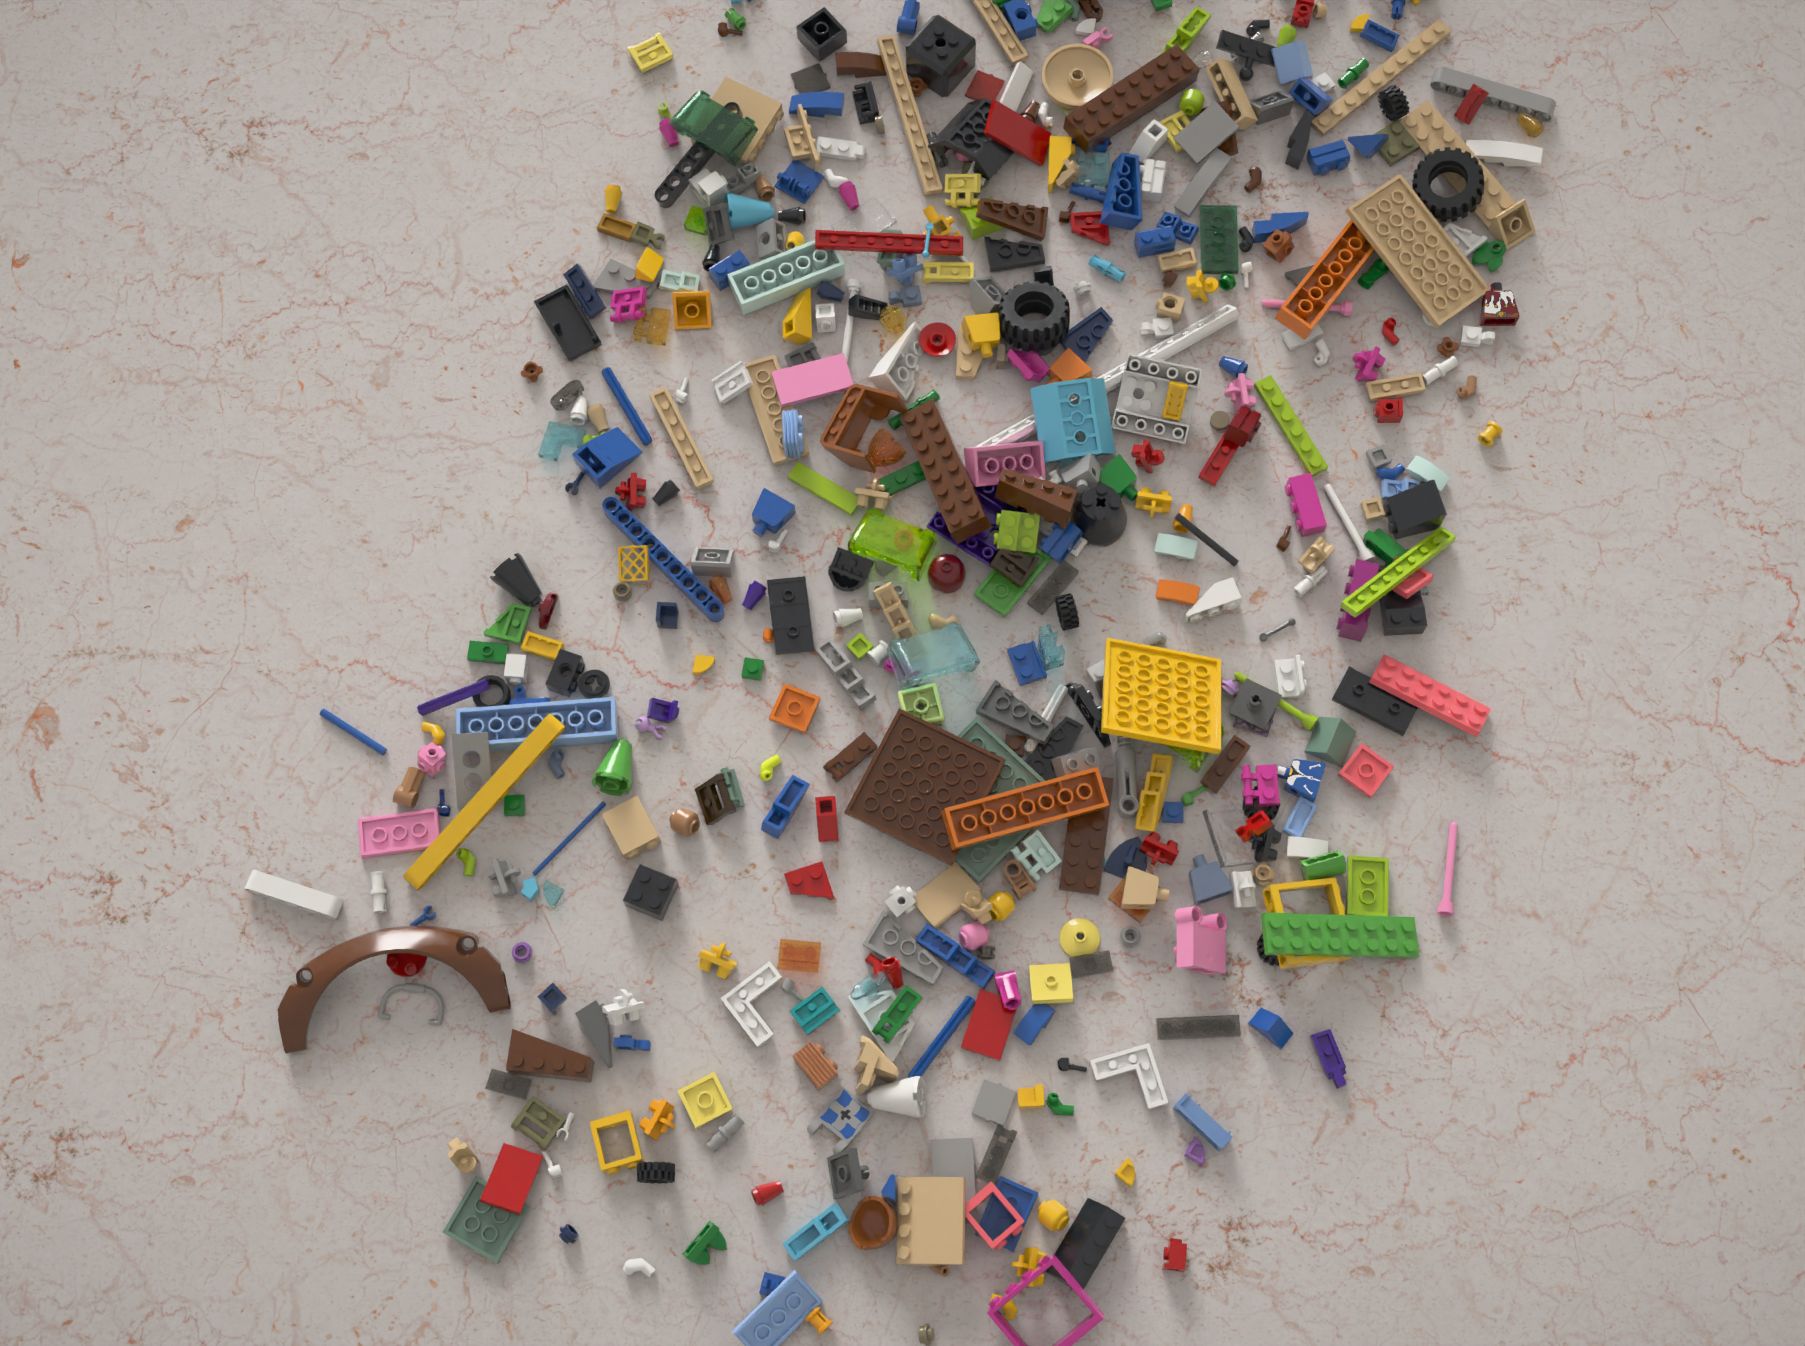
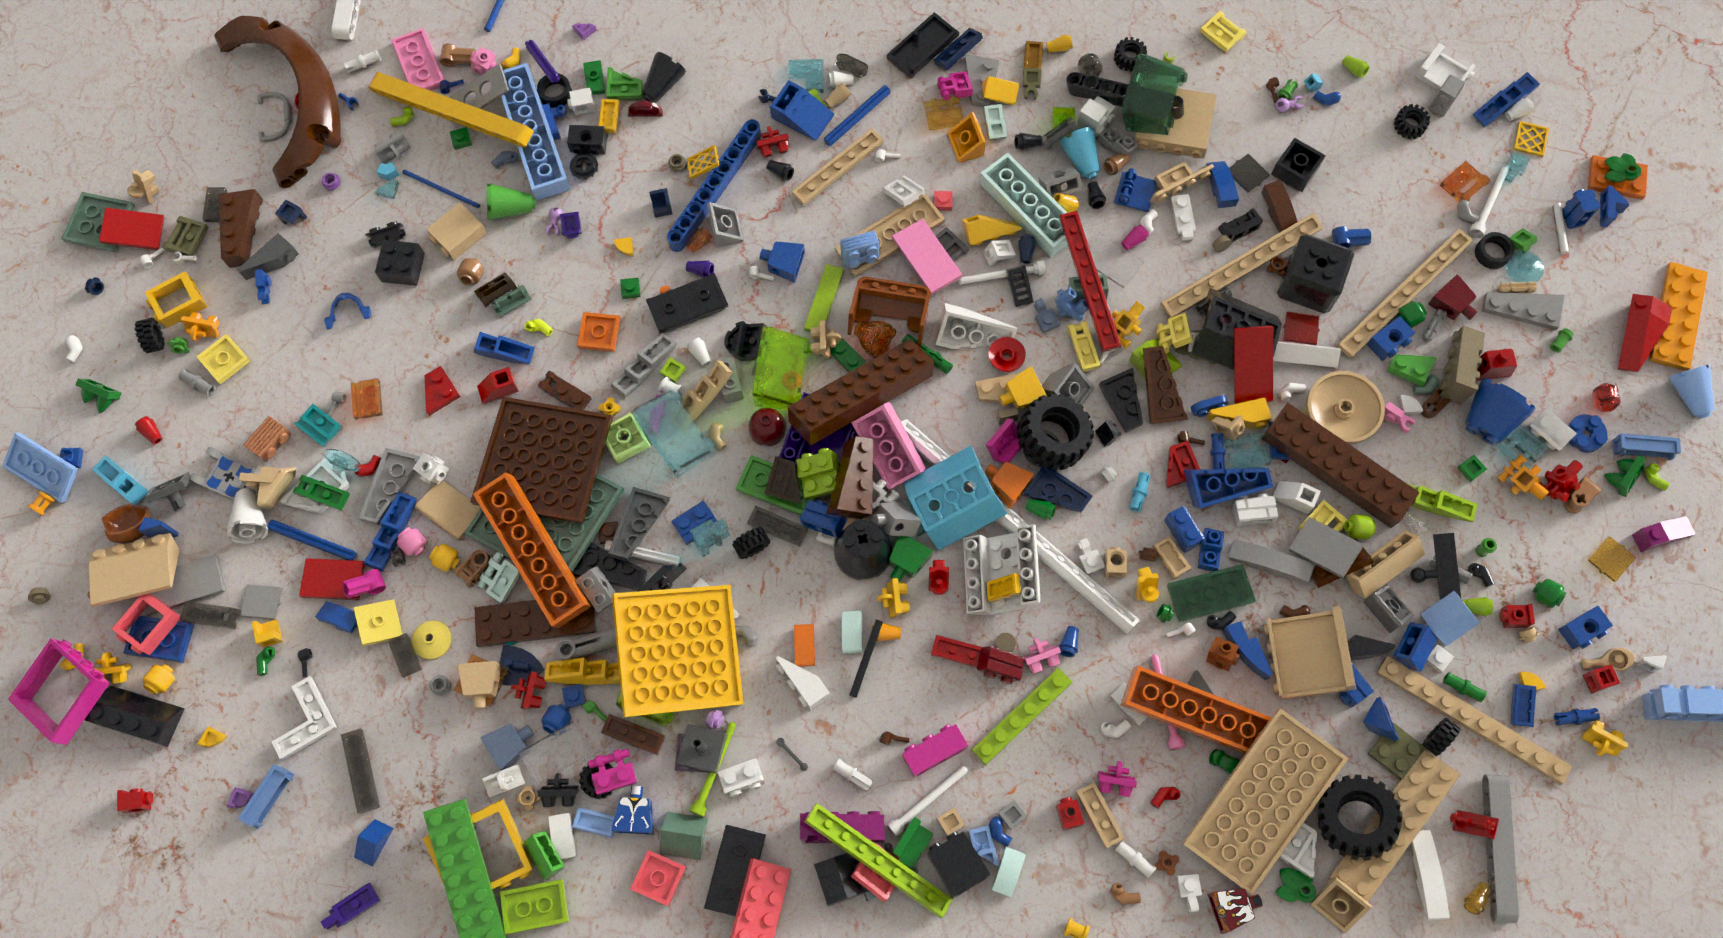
camera: 75 degrees right, 0 degrees up
(422, 651) = (584, 30): none -> medium lavender tile
(531, 366) = (867, 28): dark orange plate -> none
(607, 911) = (392, 230): none -> black hinge
(623, 1004) = (290, 268): white hips -> none
(646, 130) = (1128, 45): none -> black tyre
(648, 178) = (1090, 65): none -> clear smoke head
(671, 960) = (366, 312): none -> blue helmet
(674, 1146) = (179, 345): none -> bright green plate
(708, 958) = (350, 333): yellow hips -> none
(732, 263) = (1021, 154): blue brick -> none
(741, 996) = (315, 361): white plate -> none
(750, 27) = (1284, 104): none -> lavender arm
(750, 352) = (943, 200): none -> coral plate
(880, 722) = (610, 403): none -> yellow plate
(893, 319) = (1014, 309): clear yellow head -> none
(893, 972) = (362, 479): red cone -> none
(929, 226) = (1118, 311): medium azure hinge -> none
(977, 906) = (434, 535): tan hips -> none
(1031, 111) = (1285, 375): reddish brown cone -> none
(1041, 179) = (1203, 407): none -> blue plate
(1101, 353) = (1041, 508): none -> green cone
(1193, 830) = (555, 718): none -> blue head
(1202, 946) = (430, 752): bright pink piece -> none
(1236, 11) = (1487, 546): none -> bright green pin
(1255, 824) = (568, 777): red plate -> none
(1297, 176) = (1310, 654): none -> tan panel
(1316, 555) = (880, 773): tan hips -> none

